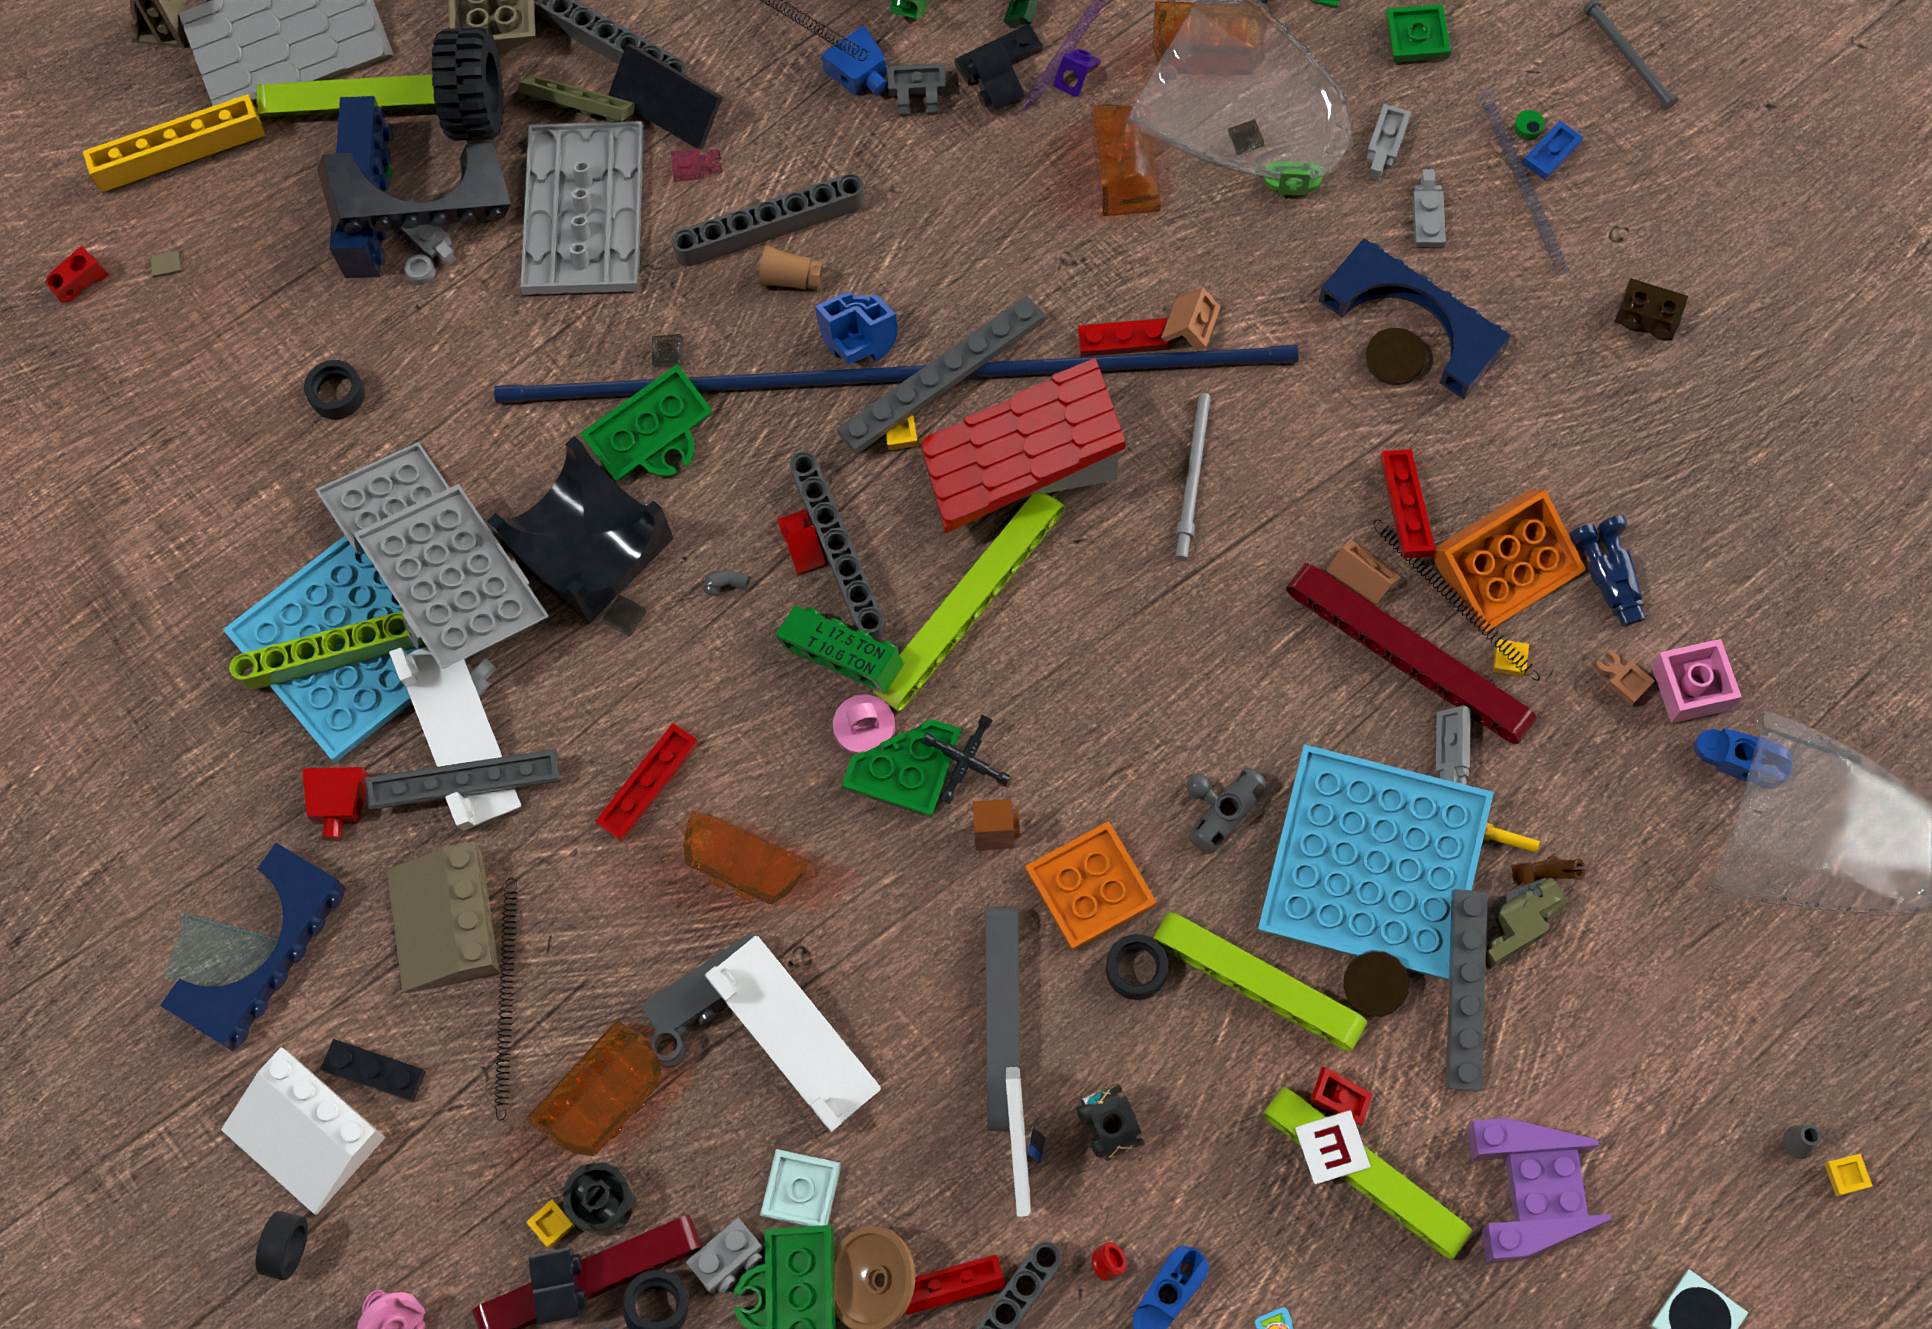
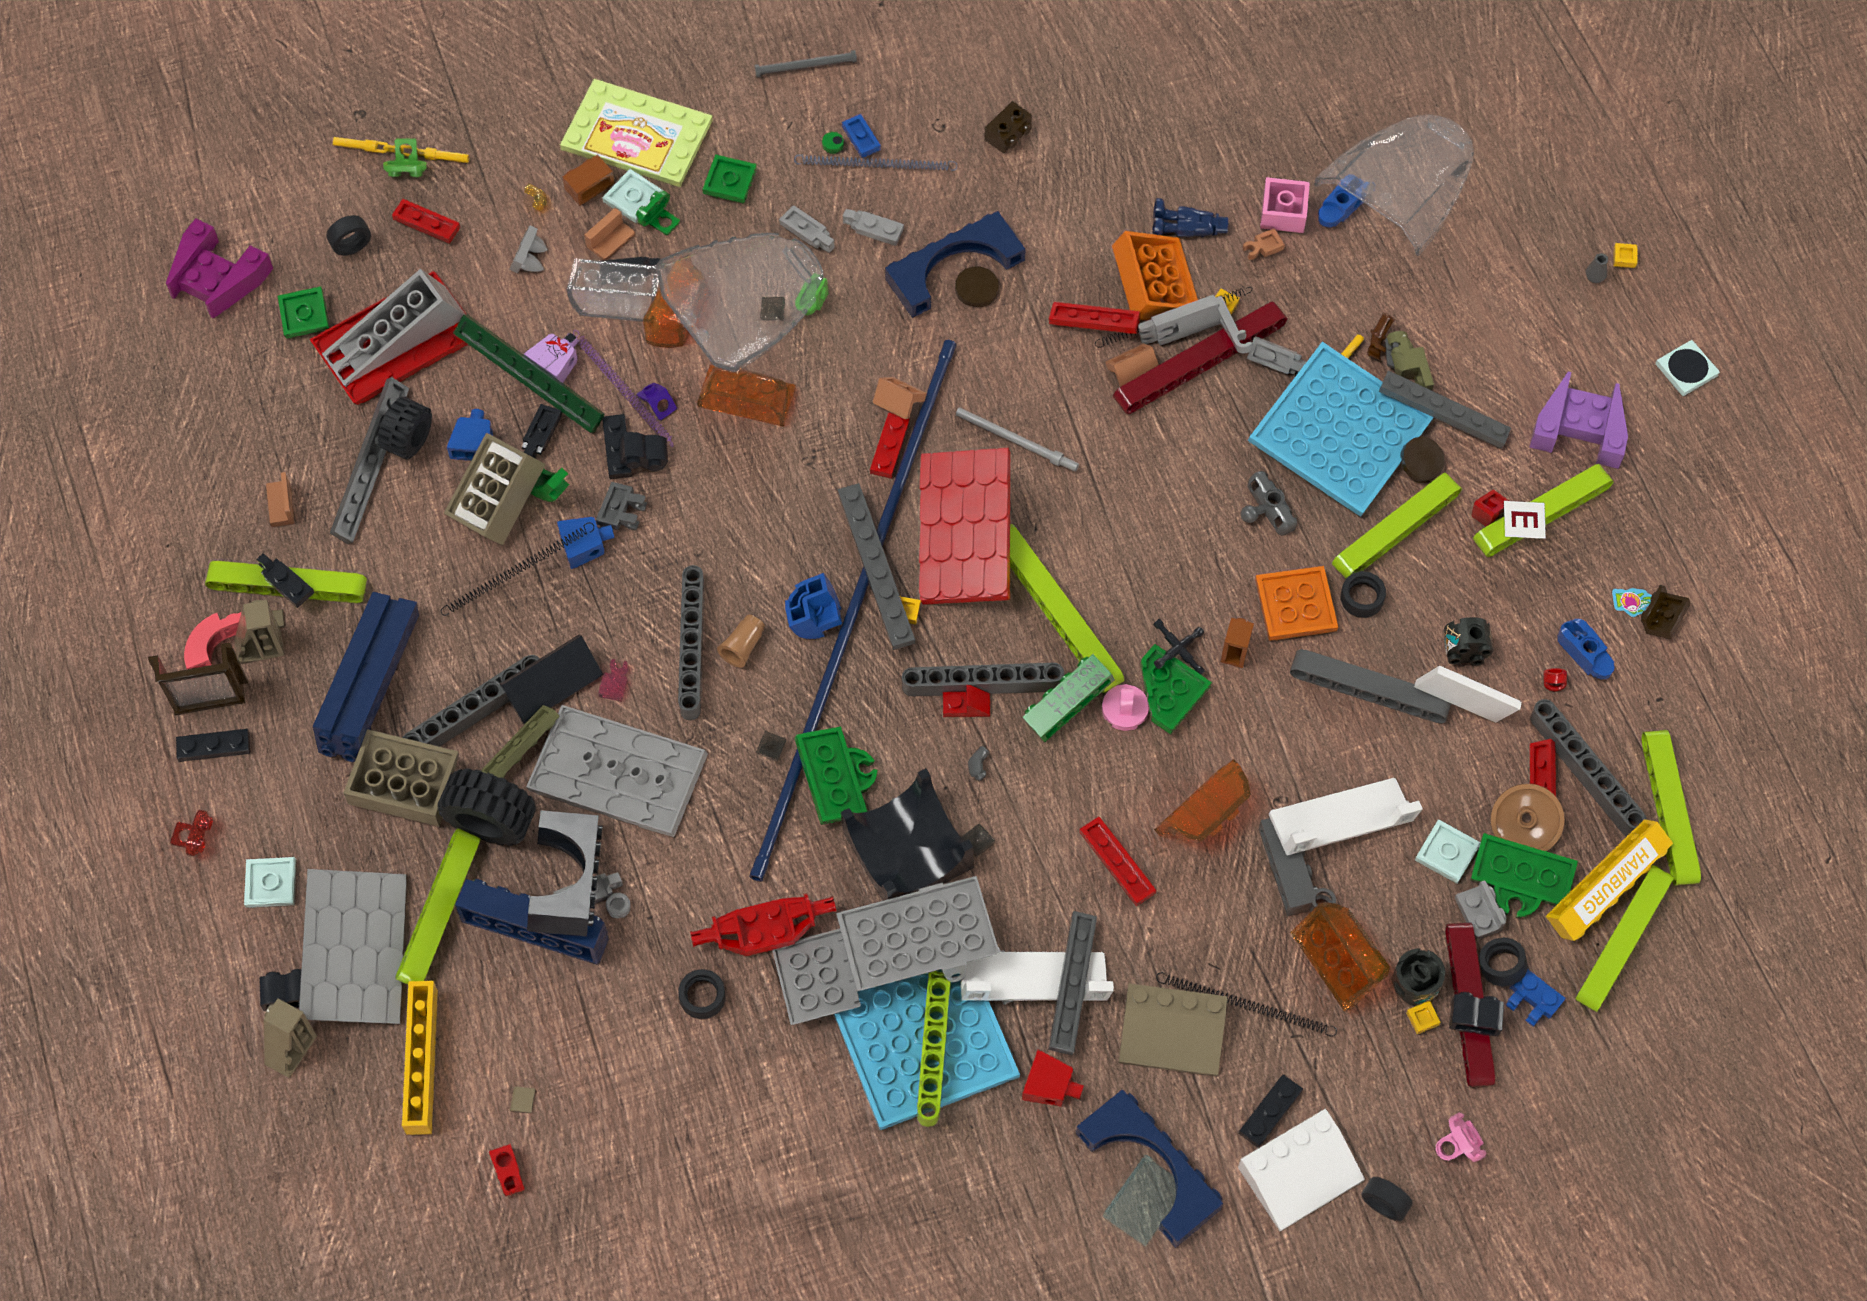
camera: 75 degrees left, 5 degrees down
(434, 419) = (764, 925): none -> red plate
(1456, 619) = (1192, 319): none -> light grey hinge

